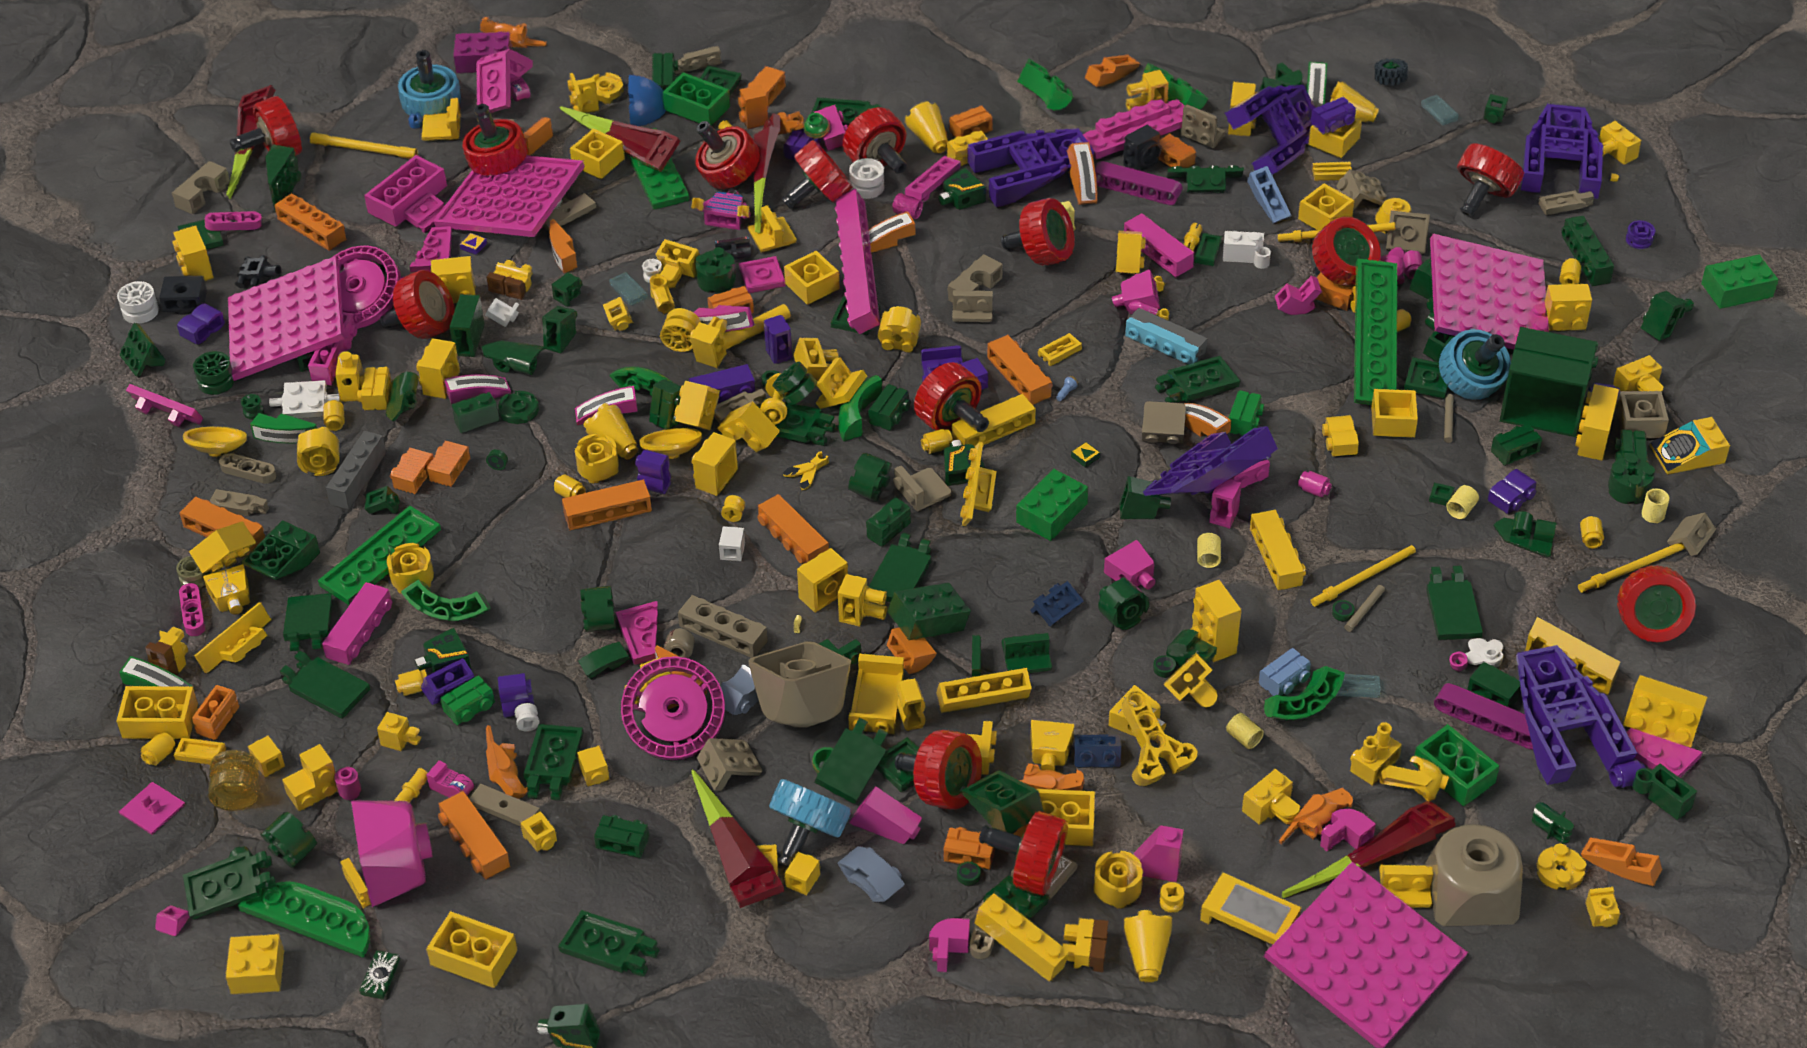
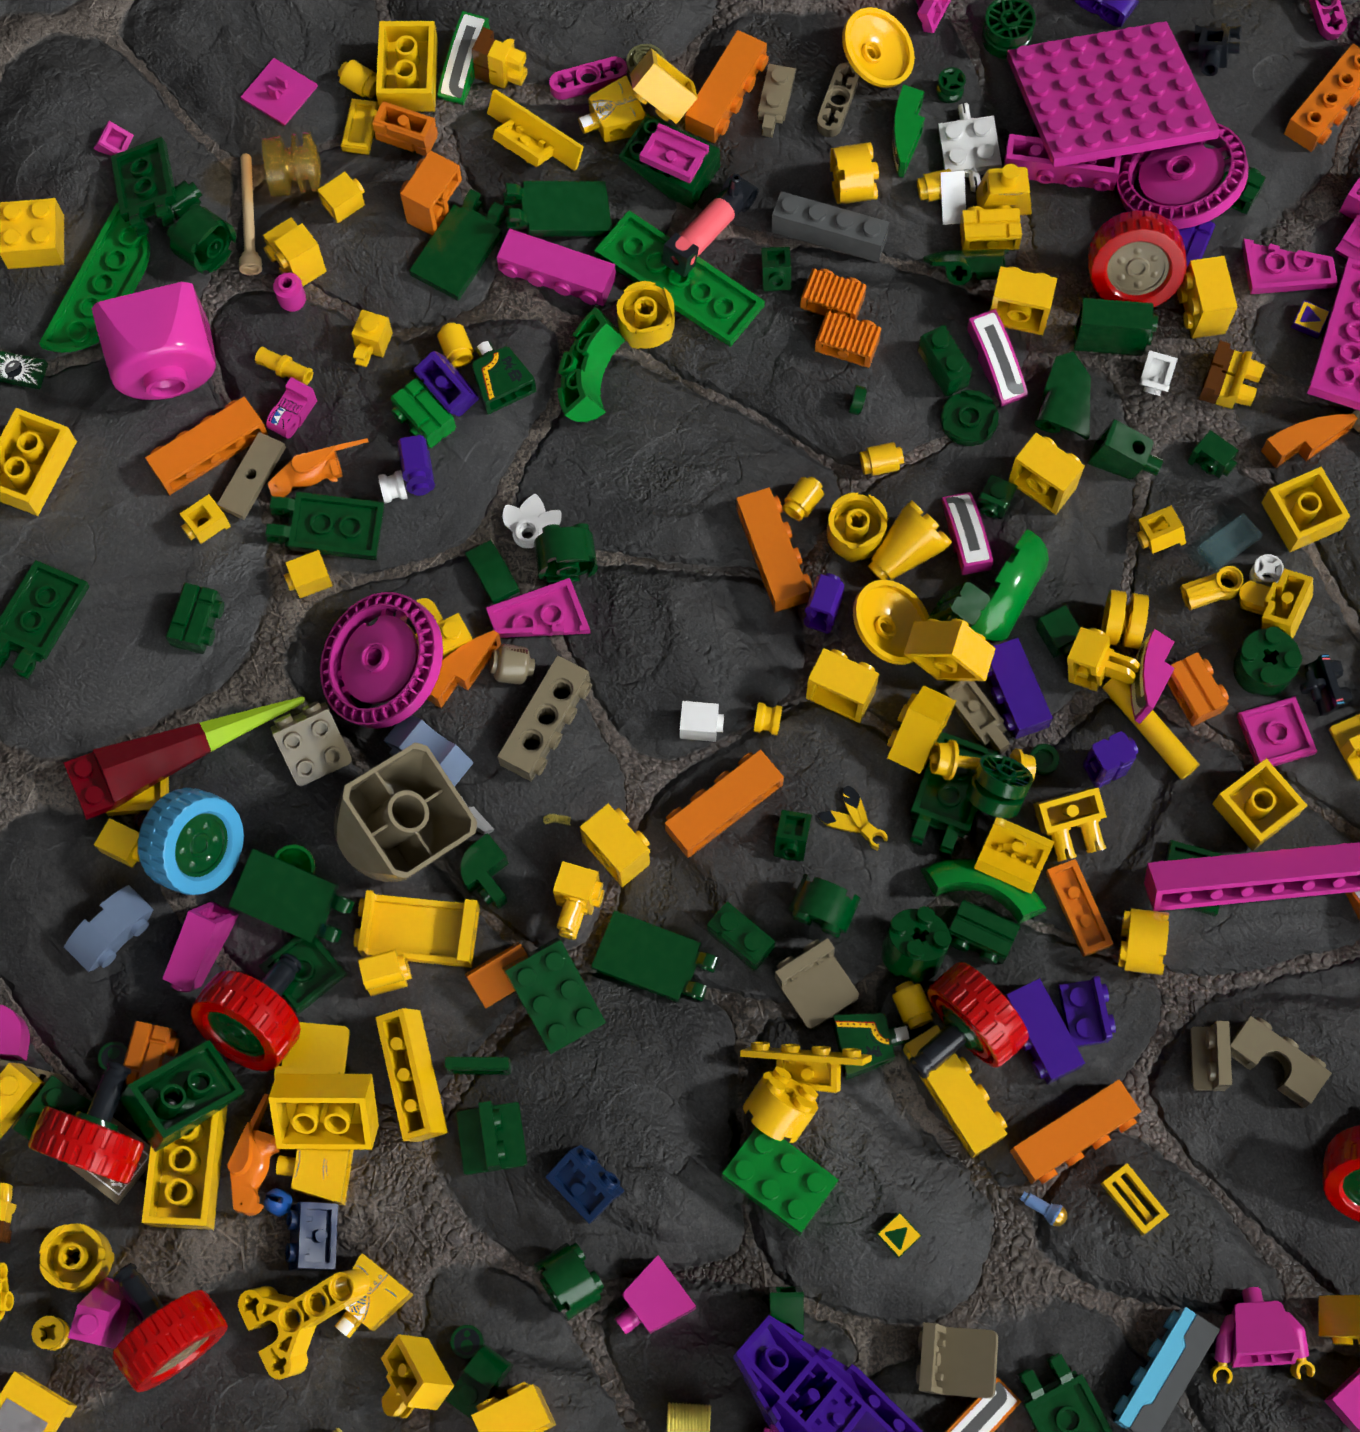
camera: 90 degrees right, 25 degrees up
(284, 688) = (428, 191): none -> orange brick
(285, 536) = (674, 153): none -> dark pink plate
(311, 815) = (250, 261): none -> tan piece
(346, 404) = (953, 196): none -> white sticker
(364, 540) = (682, 250): none -> piece
(545, 448) = (881, 459): none -> yellow brick
(566, 640) = (529, 518): none -> white plate
(571, 361) = (1046, 473): none -> yellow brick
(579, 394) = (996, 497): none -> dark green bracket
(613, 247) = (1305, 509): none -> yellow brick
(684, 364) = (1058, 631): none -> dark green brick
(816, 496) = (792, 835): none -> dark green bracket
(878, 362) = (1079, 907): none -> orange plate
(898, 432) = (915, 944): none -> dark green brick
(1005, 494) = (781, 1105): none -> yellow brick
(1013, 724) = (324, 1111): none -> yellow brick
(1077, 766) = (275, 1208): none -> blue hinge
(1173, 801) = (168, 1334): none -> red wheel

